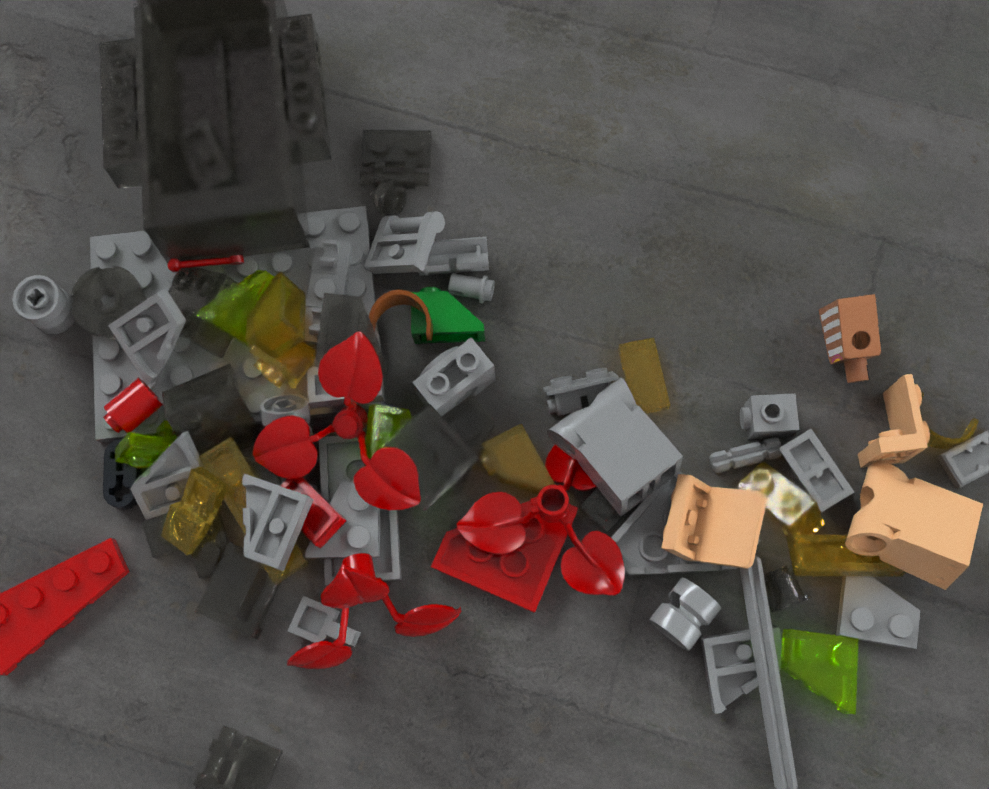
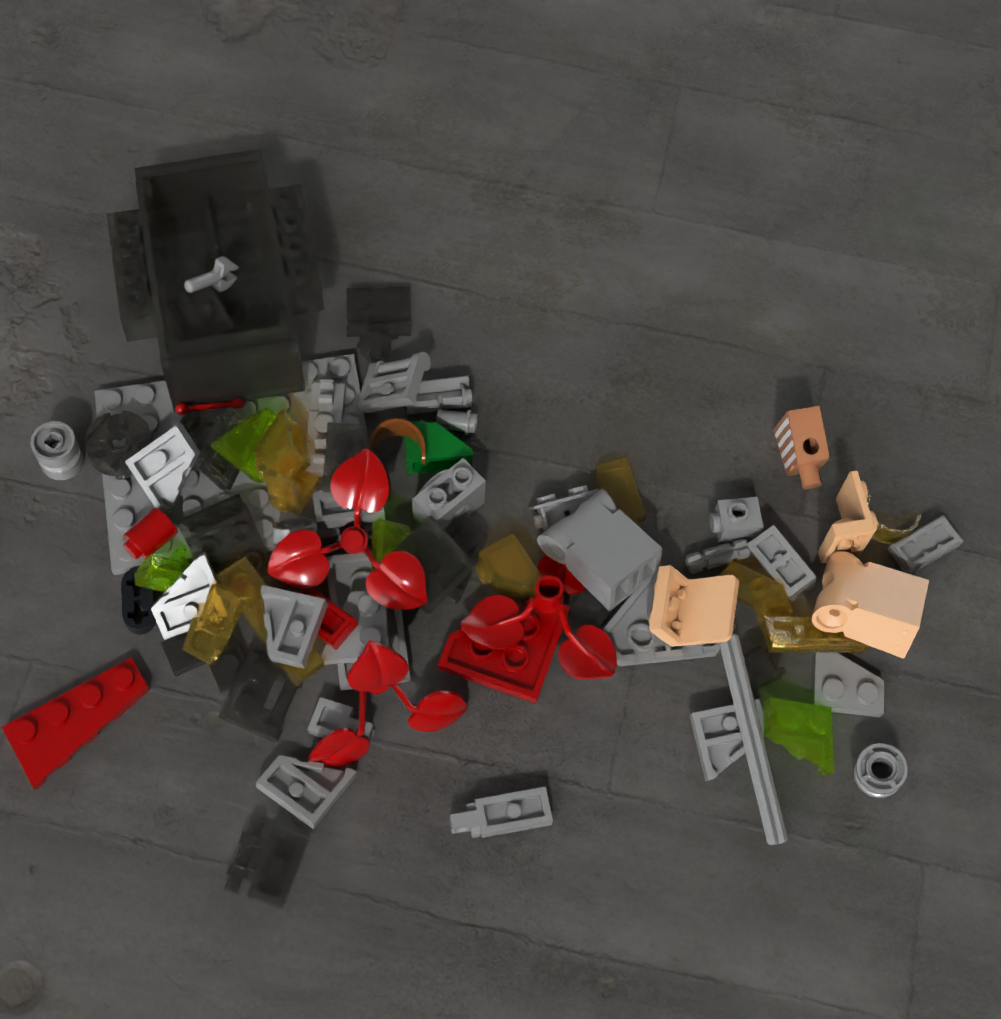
camera: 15 degrees left, 10 degrees down
(221, 117) = (219, 277): none -> light grey bar
(282, 693) = (304, 787): none -> light grey wing
(491, 737) = (504, 814): none -> light grey hinge
(685, 614) = (672, 694): light grey wheel -> none
(926, 721) = (888, 756): none -> light grey wheel

